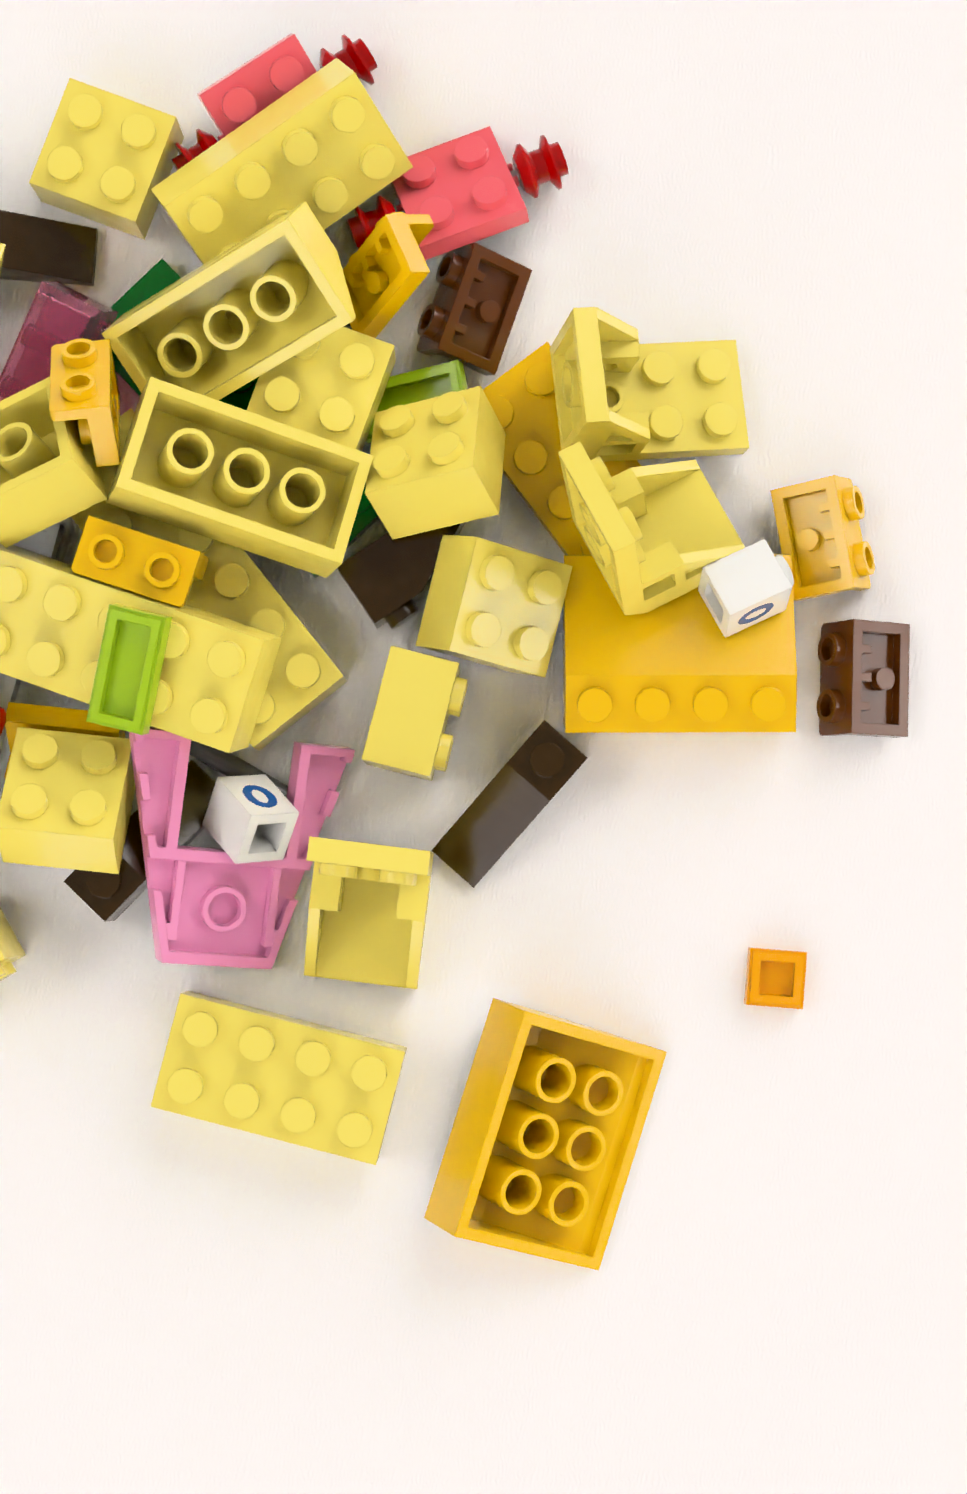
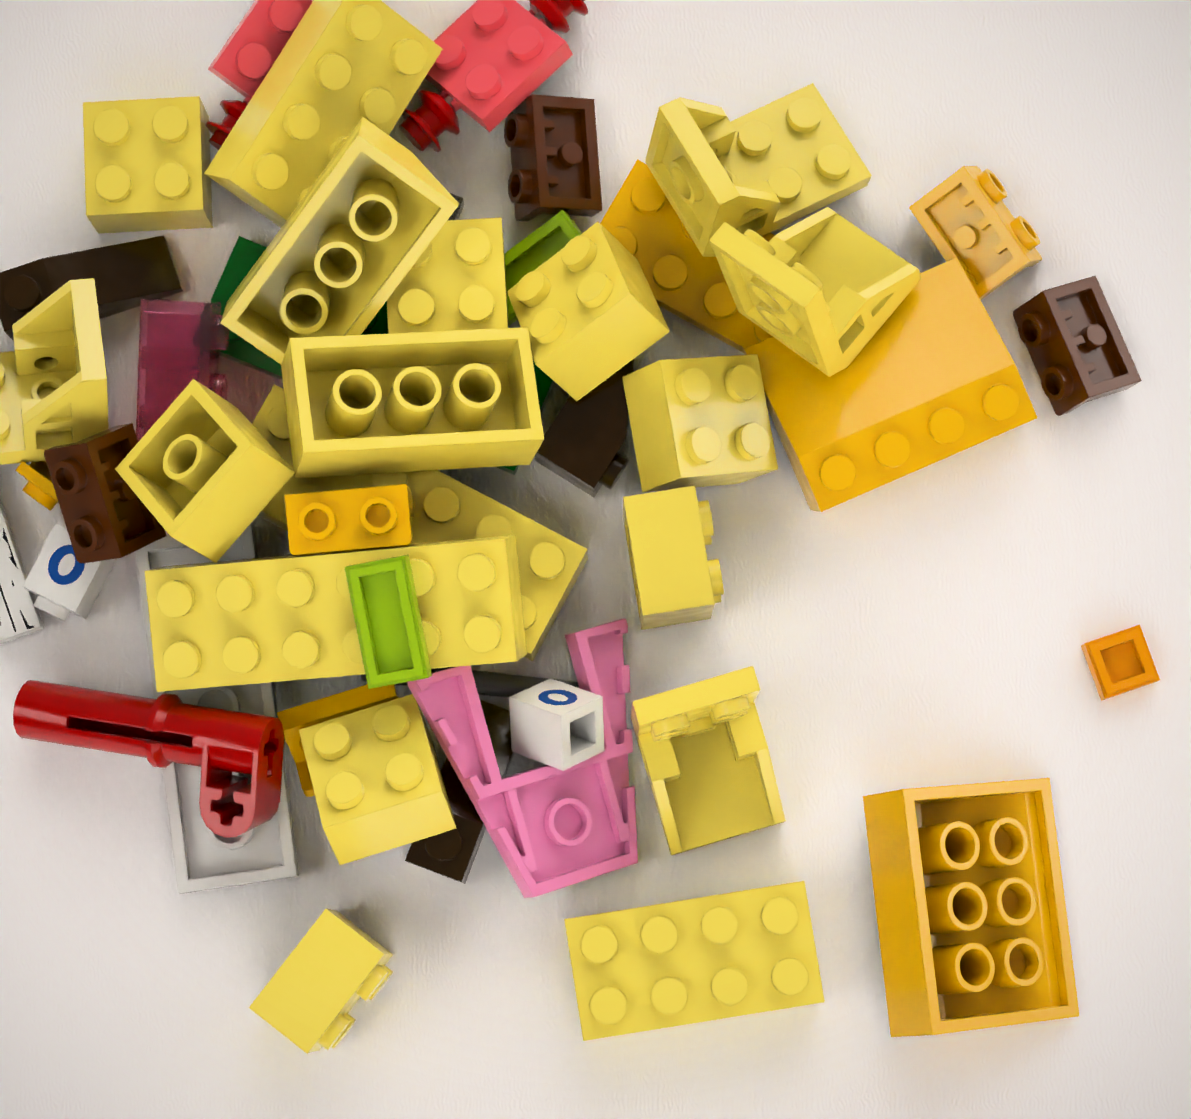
camera: 20 degrees left, 5 degrees down
(87, 390) = (232, 380): yellow bracket -> none
(386, 270) = (463, 149): yellow bracket -> none
(509, 803) = (797, 603): dark brown slope -> none
(746, 587) = (930, 302): white brick -> none

